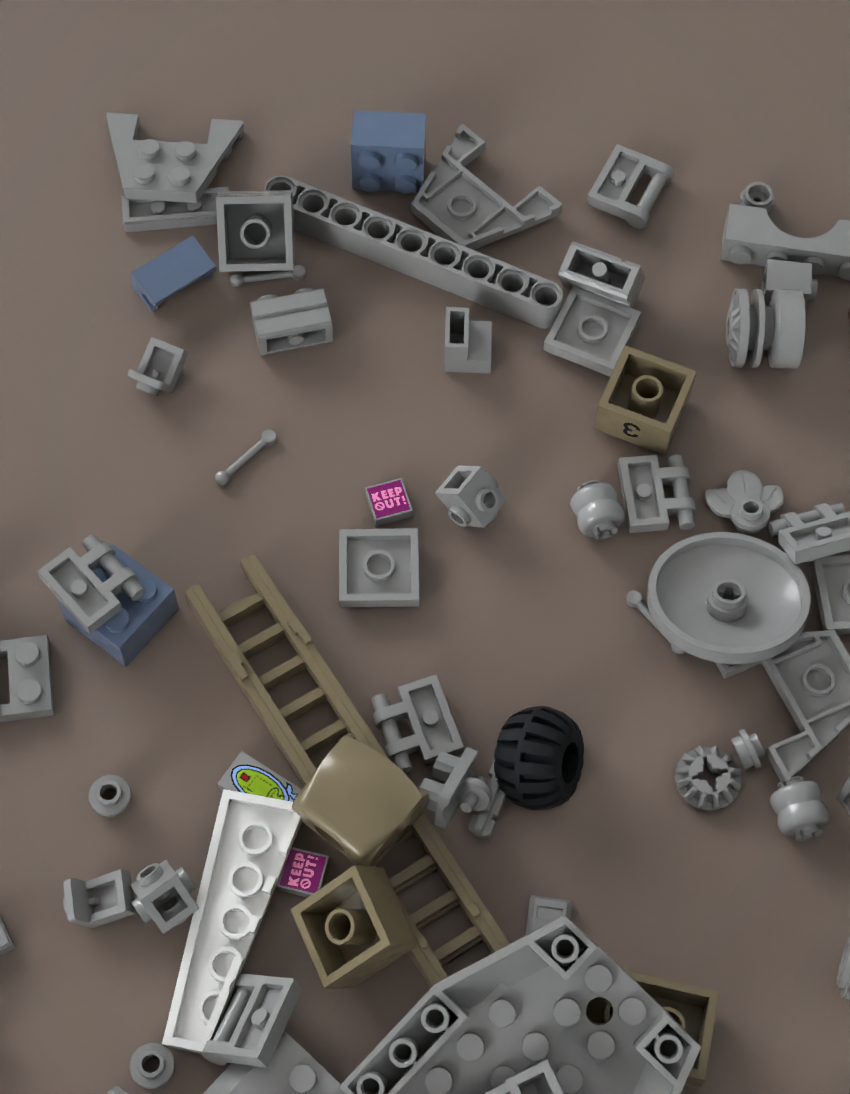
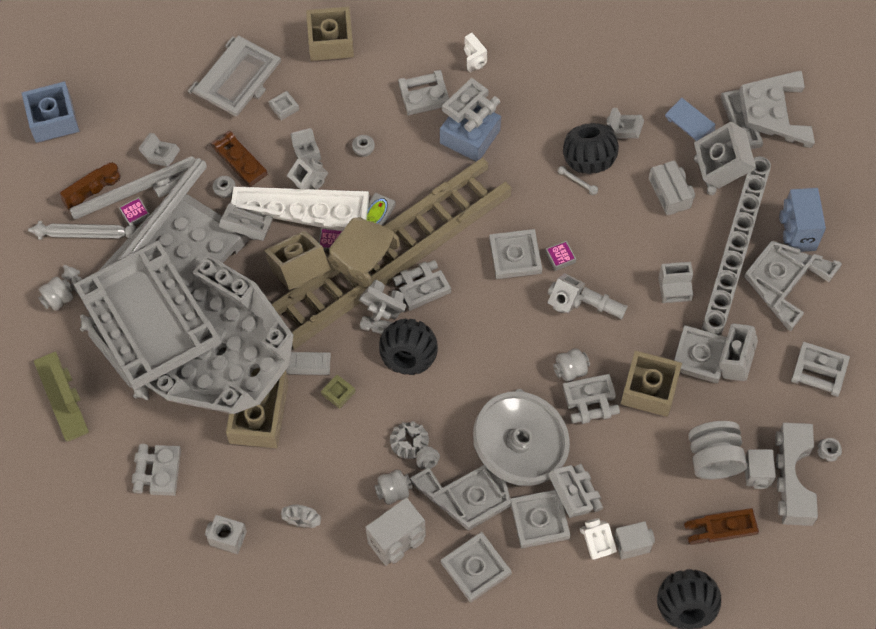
camera: 85 degrees right, 0 degrees up
(91, 1033) = (239, 159): none -> reddish brown plate
(195, 423) = (590, 148): none -> black wheel
(489, 448) = (603, 303): none -> light grey pin
(613, 885) = (338, 391): none -> olive plate
(745, 501) = (598, 452): light grey plate -> none

